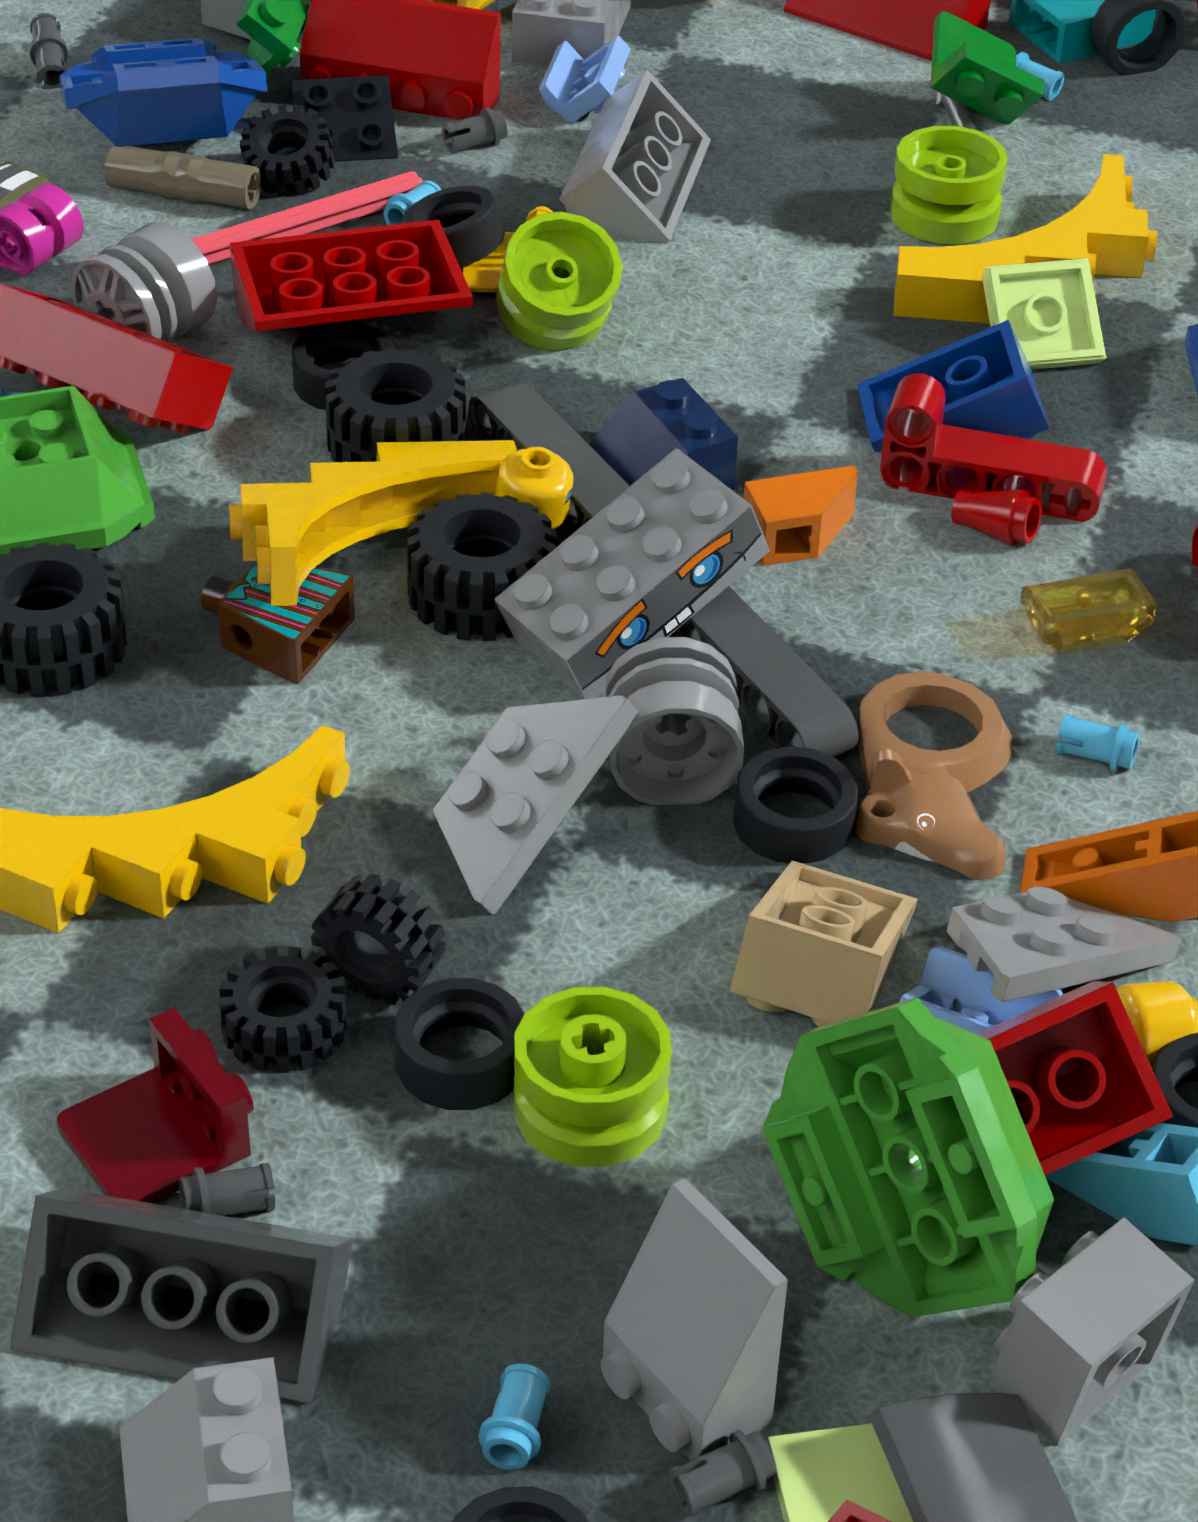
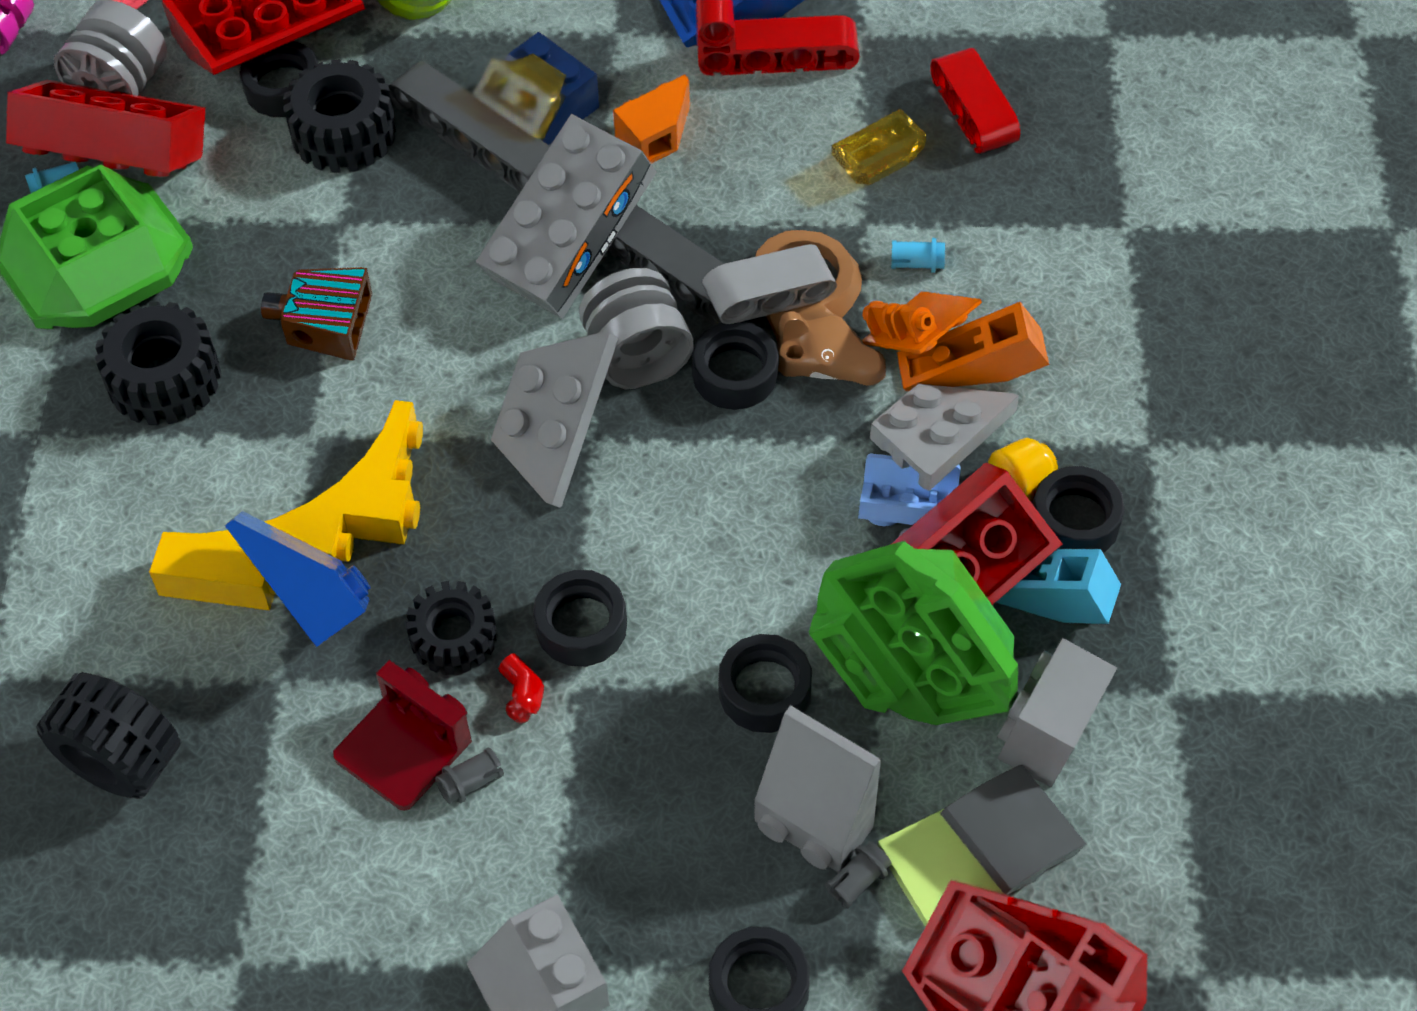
camera: 15 degrees left, 15 degrees up
(112, 897) = (307, 580): none -> blue slope
(177, 1289) = (468, 858): dark grey slope -> none
(302, 524) = (340, 204): yellow arch -> none
(351, 1111) = (527, 688): none -> red arm
(379, 938) = (499, 559): black tyre -> none
(468, 556) = (441, 205): black tyre -> none
(515, 1418) = (717, 889): medium azure pin -> none
(538, 479) = (467, 159): yellow head -> none
(591, 1076) = (678, 619): lime wheel -> none
(632, 431) = (522, 92): none -> clear yellow slope
(681, 1147) = (764, 649): none -> black tyre
(820, 945) = (792, 470): tan slope -> none
(873, 711) = (769, 284): none -> light grey beam
(1003, 515) = (793, 82): red cone -> none
(1059, 809) = (916, 324): none -> orange hinge

